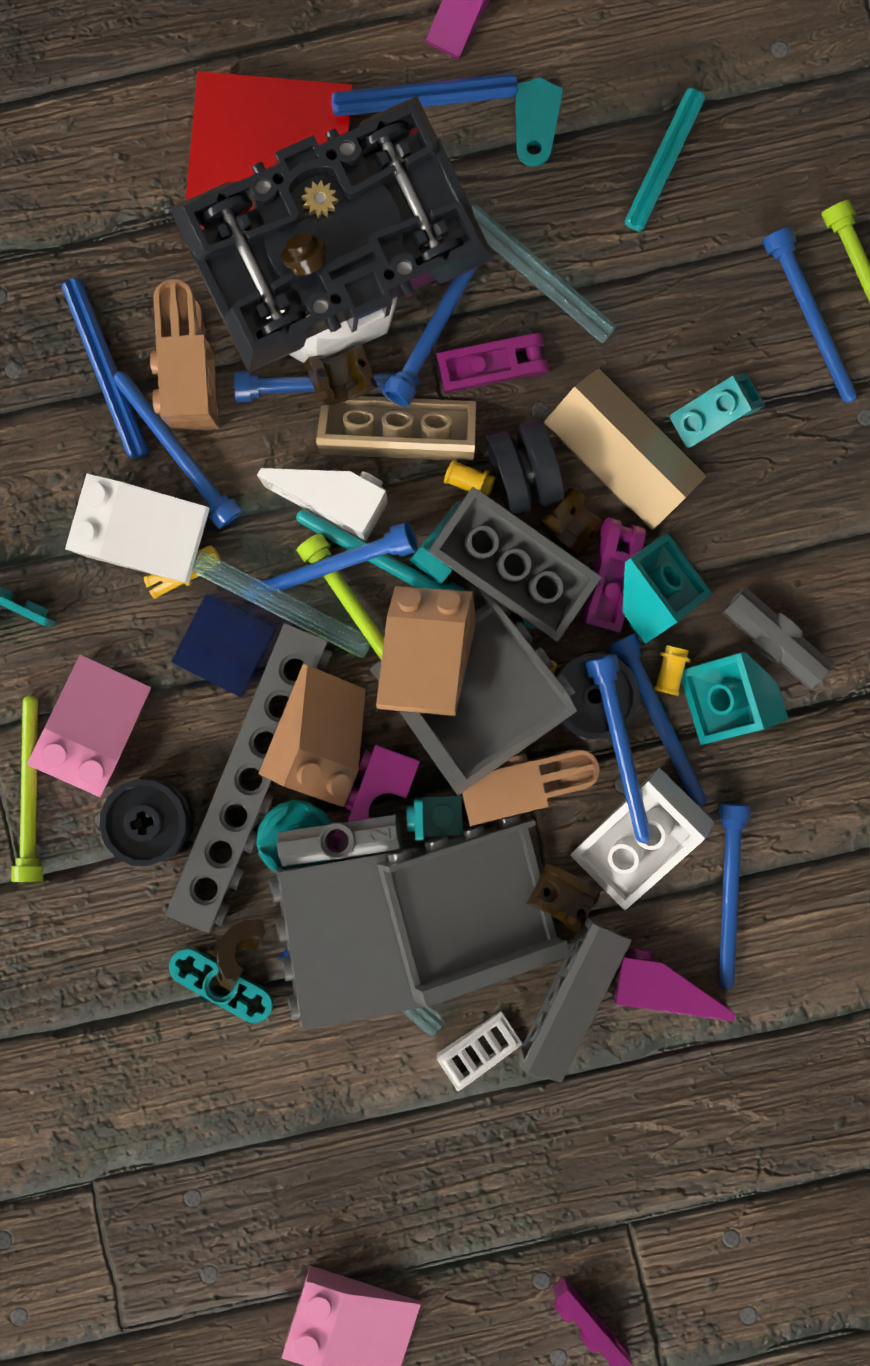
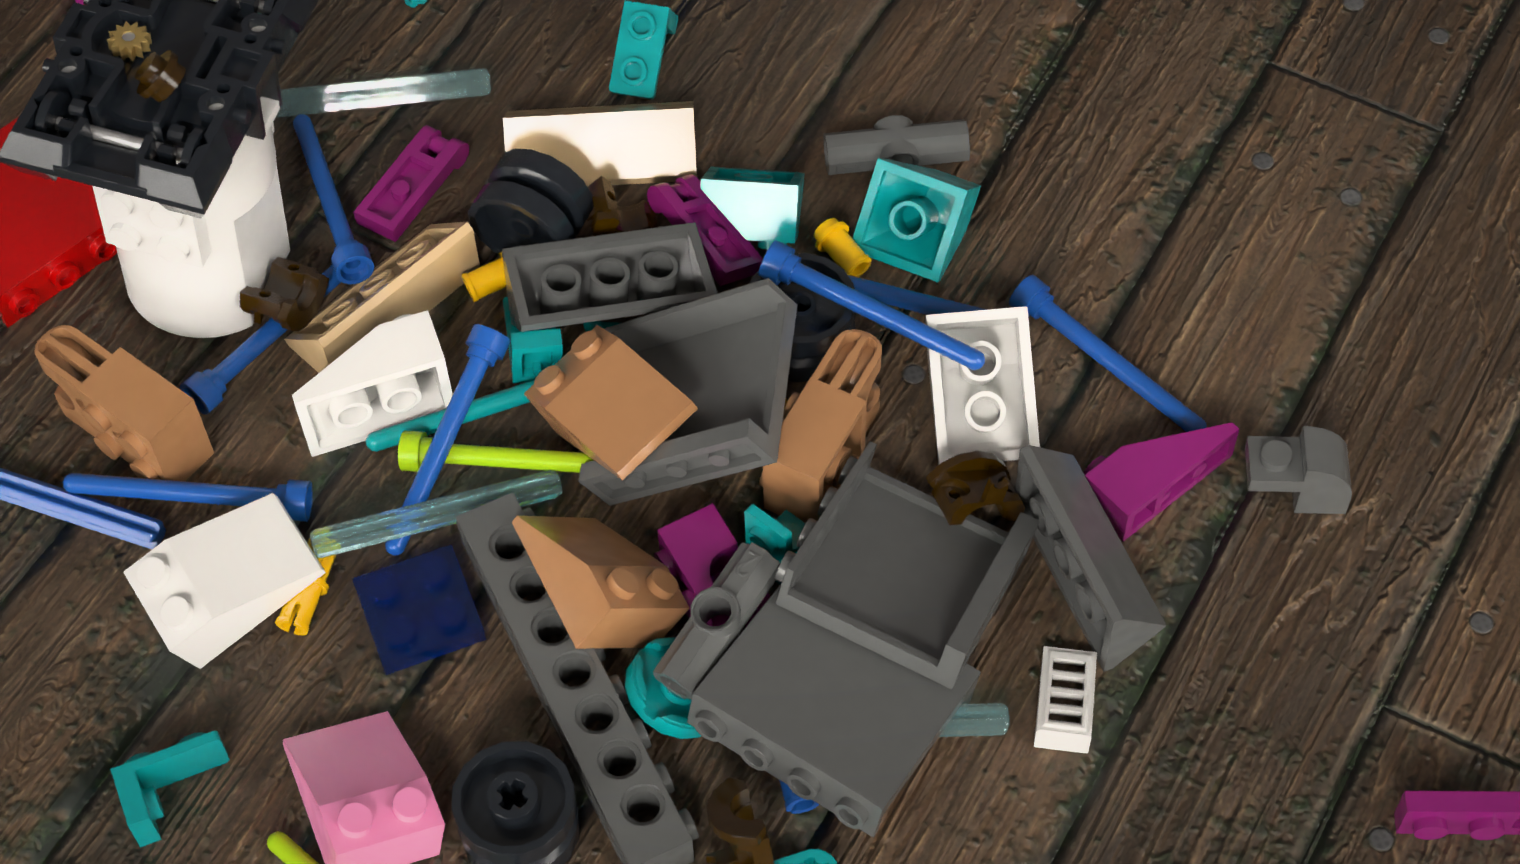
camera: 45 degrees left, 30 degrees down
(737, 1073) = (1308, 466): none -> dark grey brick

